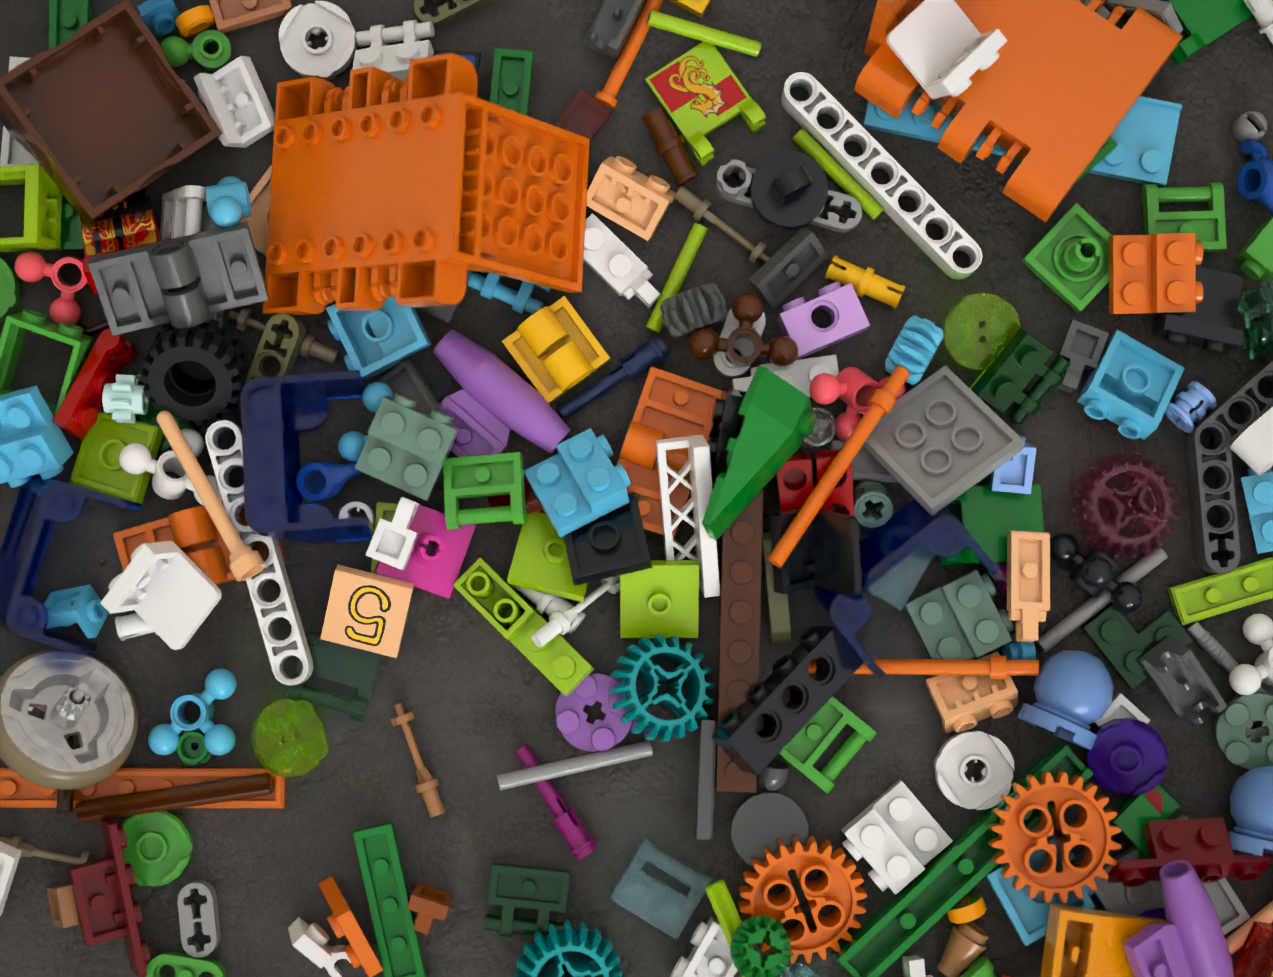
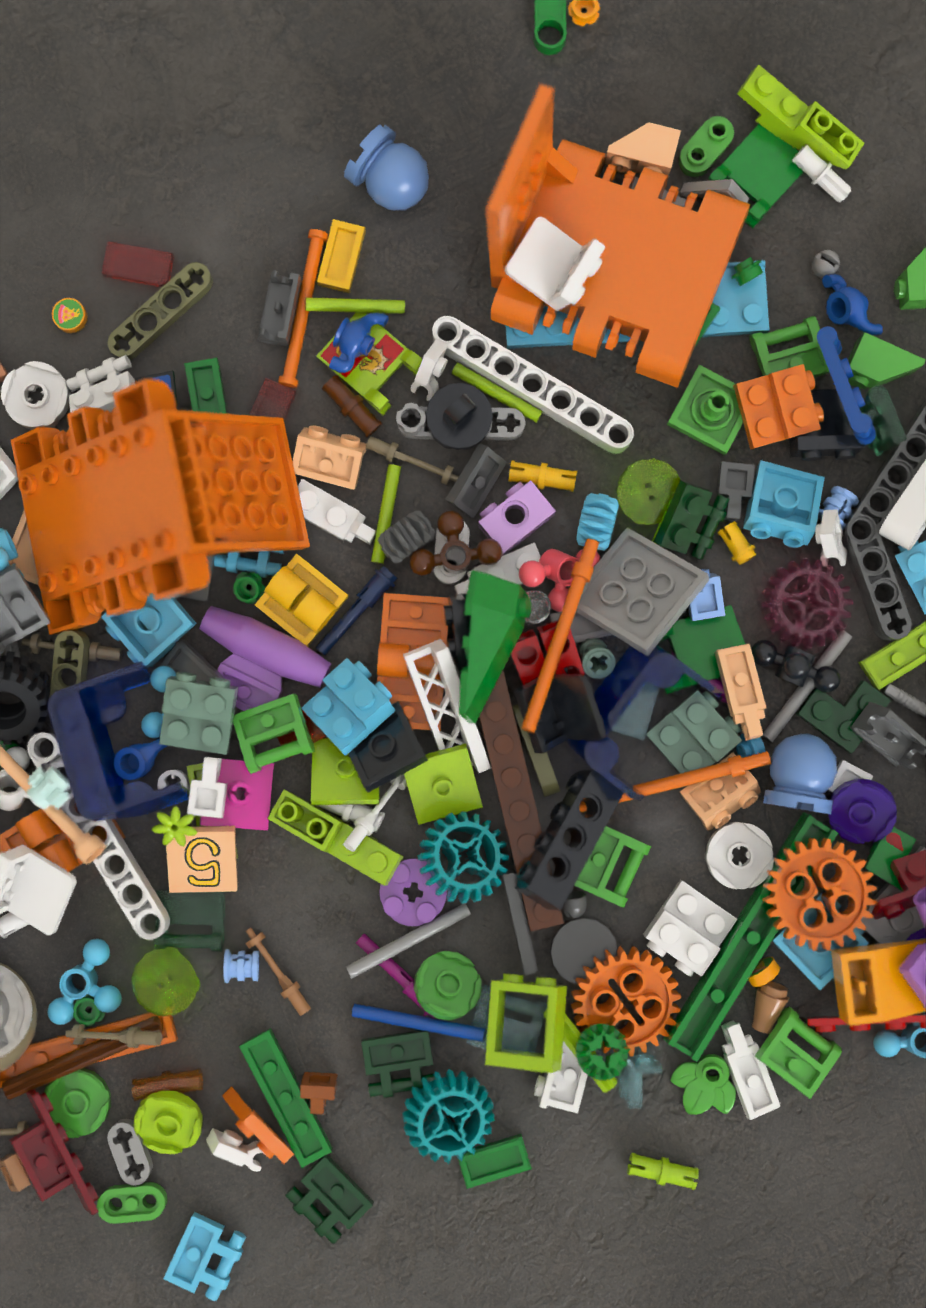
camera: 15 degrees left, 0 degrees up
(218, 484) = (48, 788): none -> light aqua gear
(236, 789) = (133, 1036): none -> dark tan piece
(251, 896) = (168, 1122): none -> lime tile
(261, 854) = (180, 1082): none -> clear orange pin
(347, 566) = (174, 826): none -> lime plant
(379, 743) = (241, 966): none -> light blue bush
(493, 326) = (243, 593): none -> green plate
(562, 860) = (419, 1022): none -> blue bar
(605, 827) = (447, 985): none -> bright green tile
(694, 72) = (355, 339): none -> blue piece
(703, 940) = (532, 1061): none -> lime window
(774, 124) = (431, 366): none -> white plate
(1065, 416) = (737, 543): none -> yellow pin
(1158, 111) = (747, 271): none -> green plate
(1174, 435) = (830, 535): none -> white plate
(1238, 285) = (840, 373): none -> blue plate

